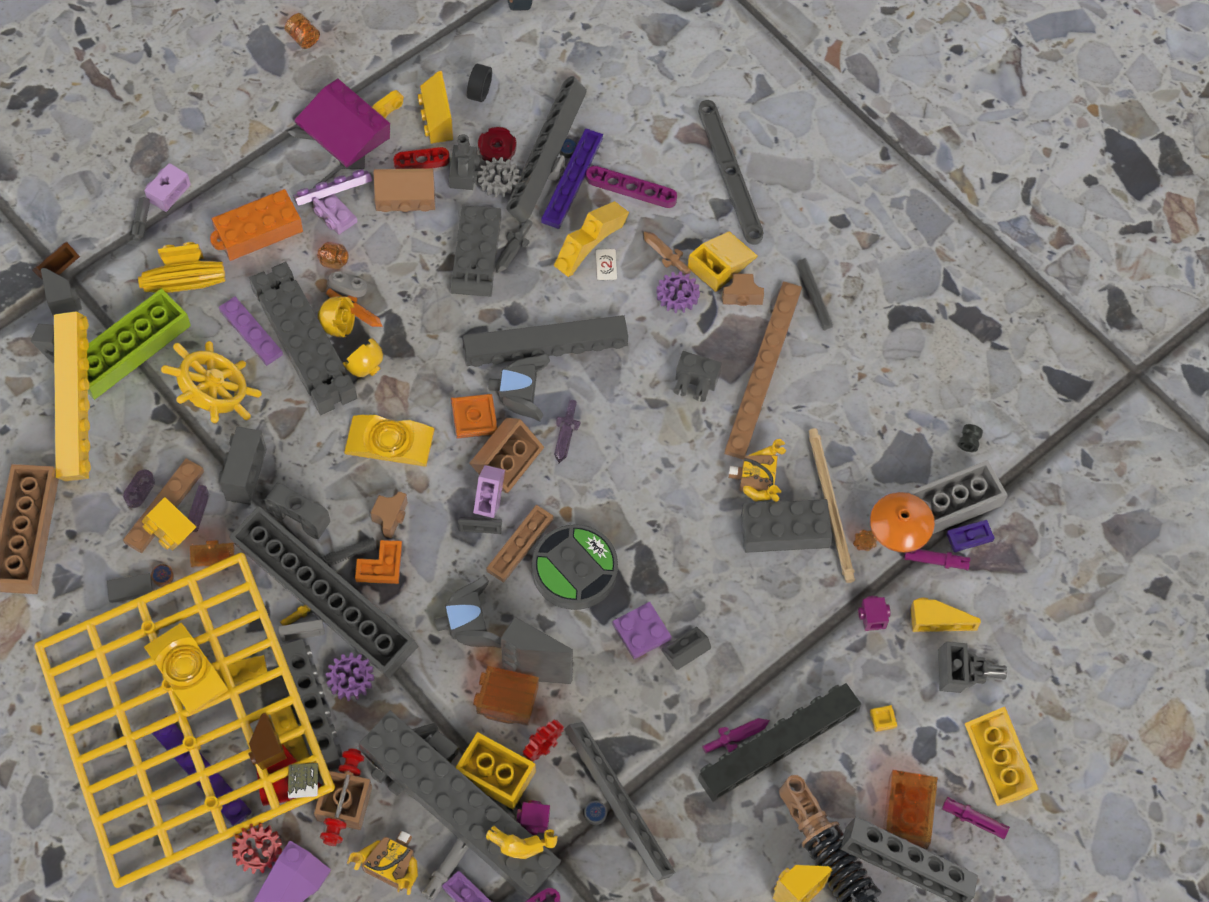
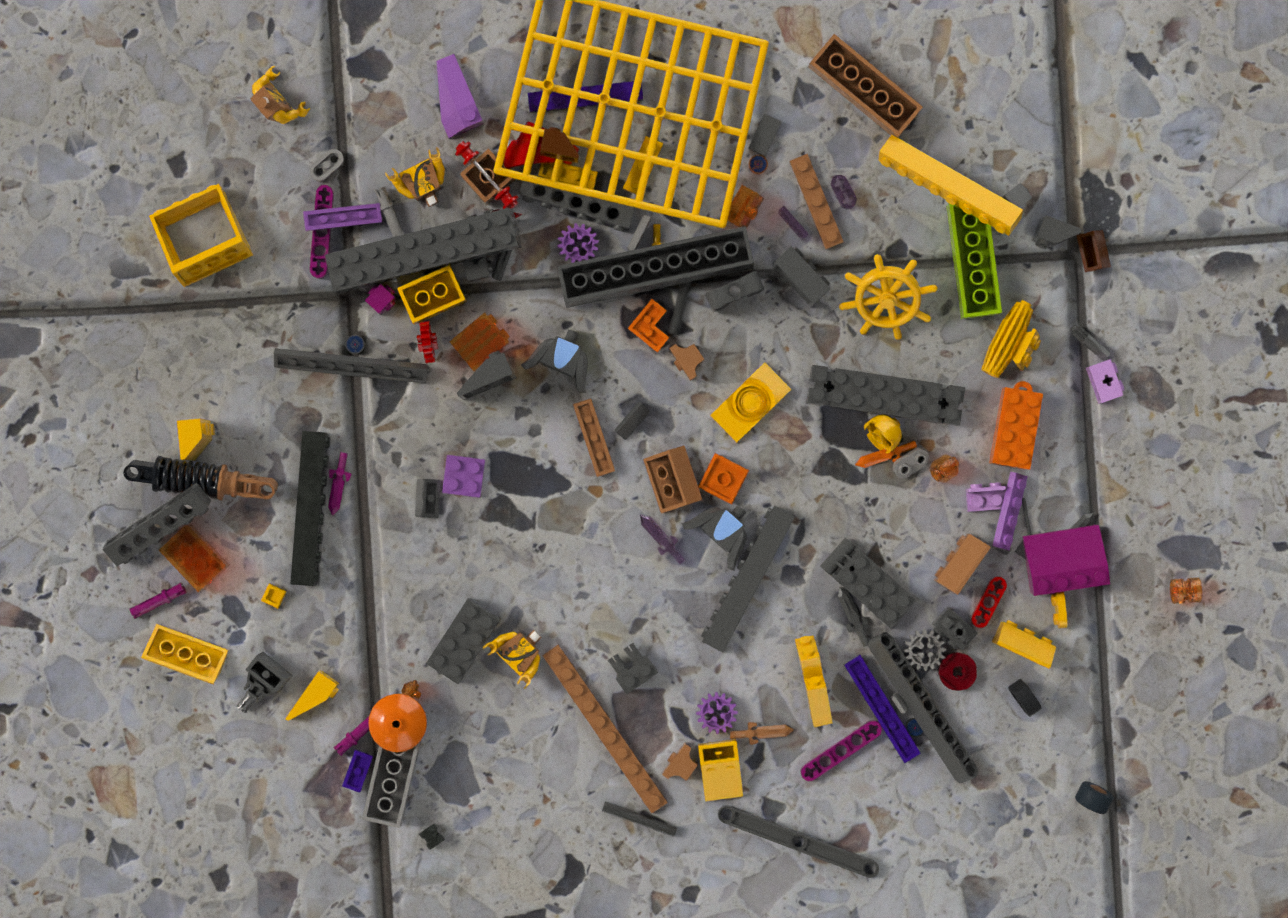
camera: 130 degrees right, 25 degrees up
(167, 524) = (788, 189): yellow brick -> none
(186, 668) = (661, 129): yellow slope -> none
(245, 846) = (495, 96): red gear -> none
(250, 331) = (923, 361): medium lavender plate -> none
(303, 780) = (515, 154): sticker -> none
(365, 360) = (829, 428): yellow cylinder -> none
(489, 491) = (646, 441): lavender brick -> none
(521, 848) = (356, 266): yellow arm -> none
(575, 567) = (546, 463): brick -> none
(606, 264) = (785, 678): white sticker -> none
(847, 569) = (458, 689): tan piece -> none
(874, 613) = (351, 651): magenta brick -> none

